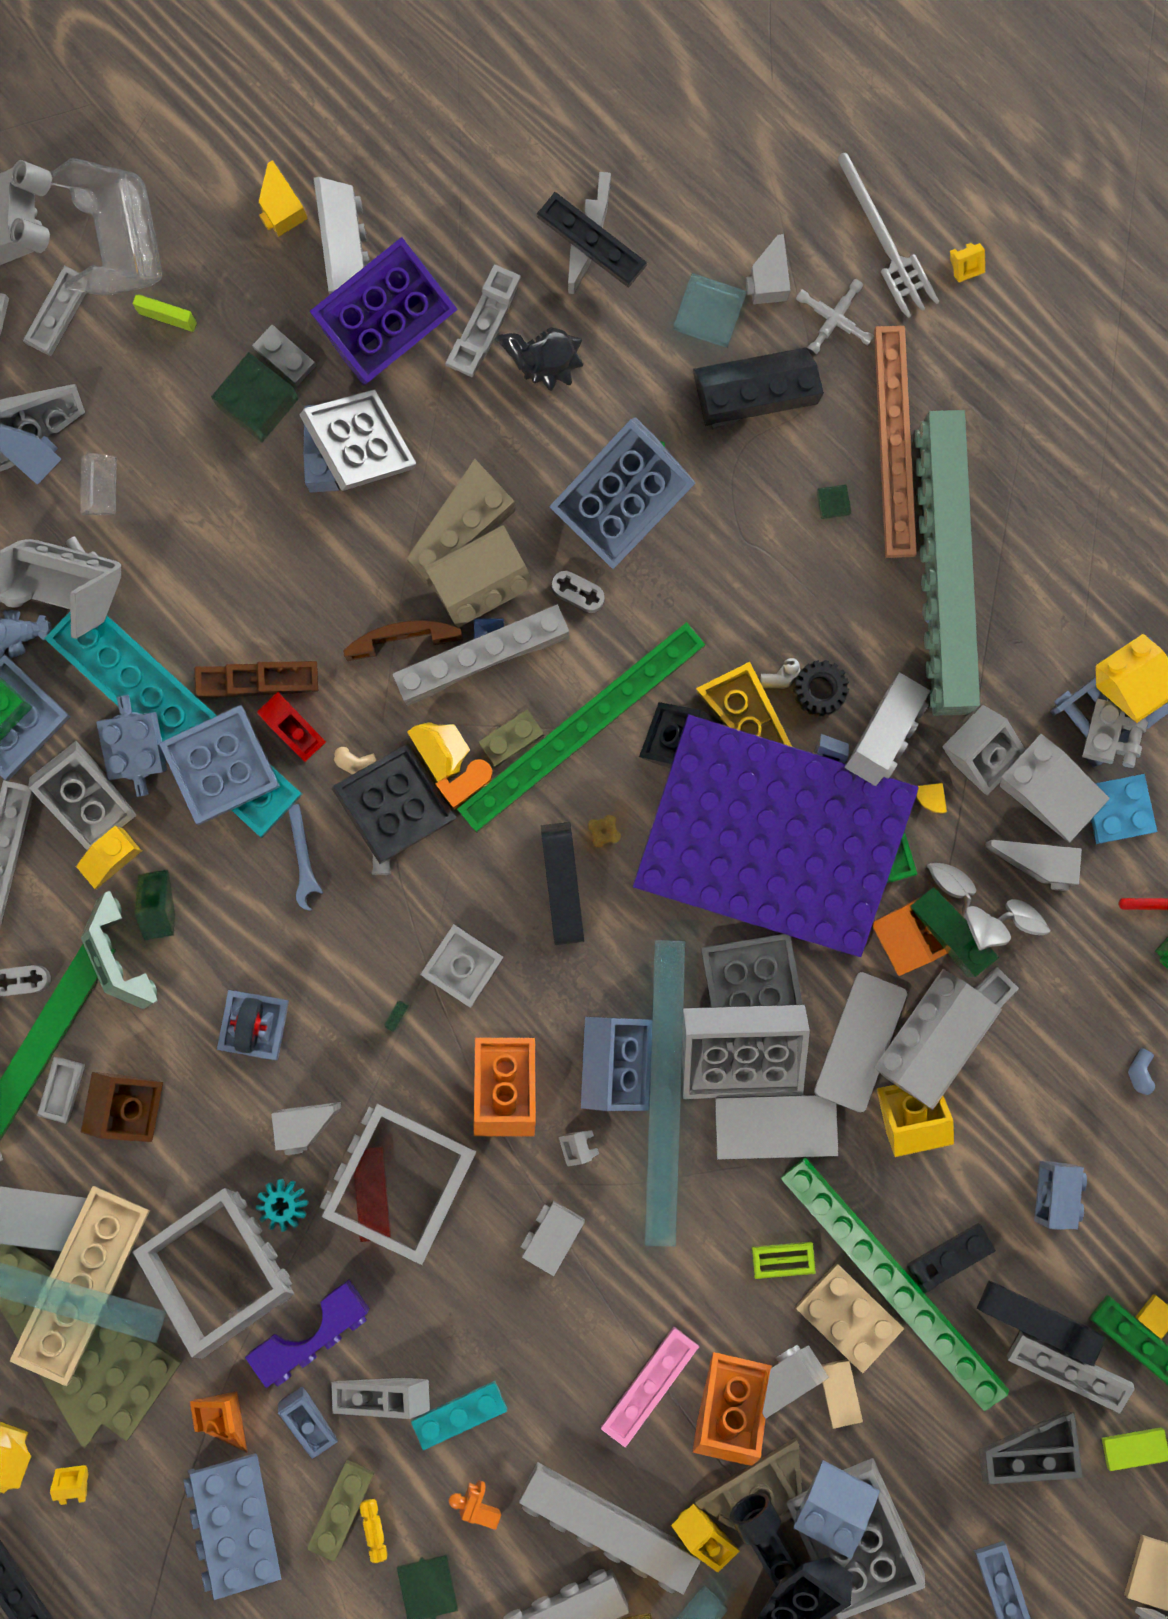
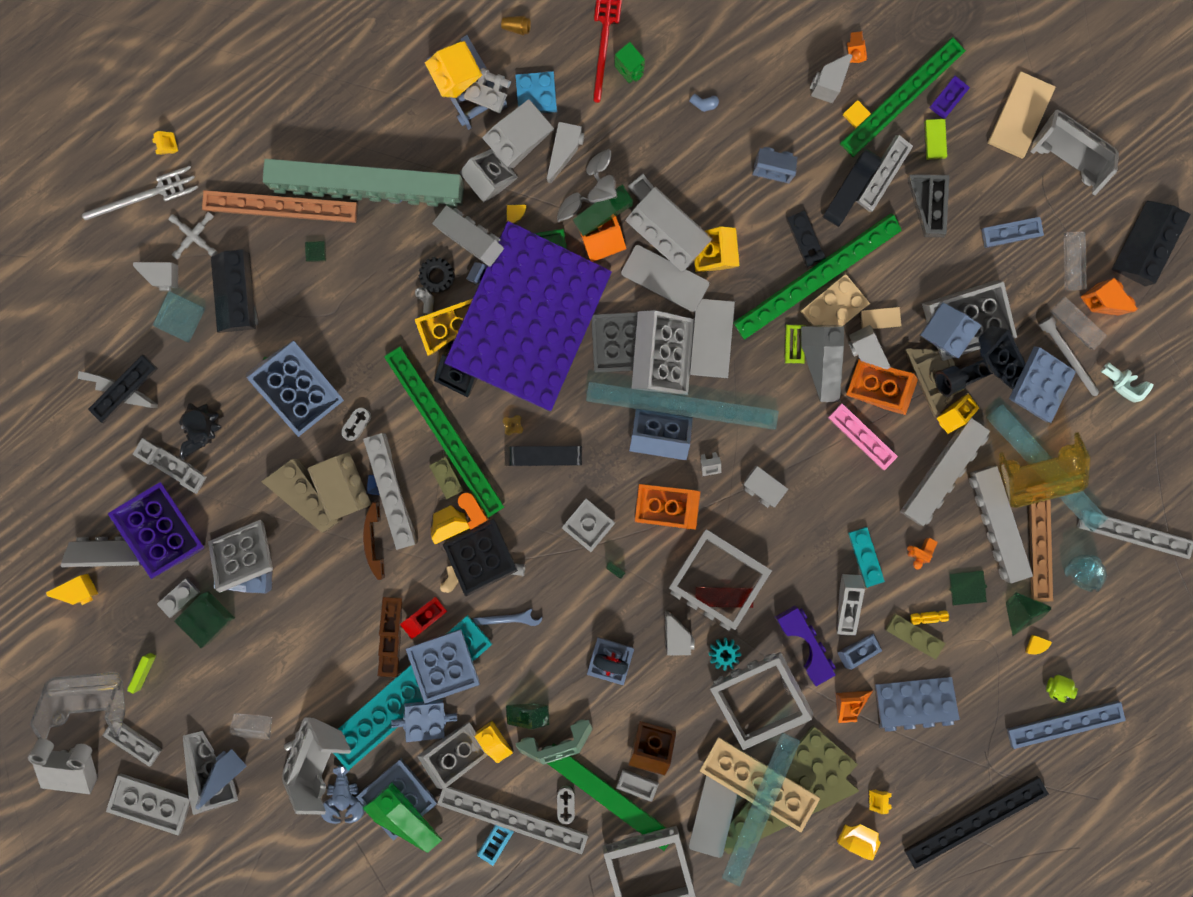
camera: 80 degrees left, 5 degrees up
(768, 1310) = (824, 356): none -> dark grey wedge

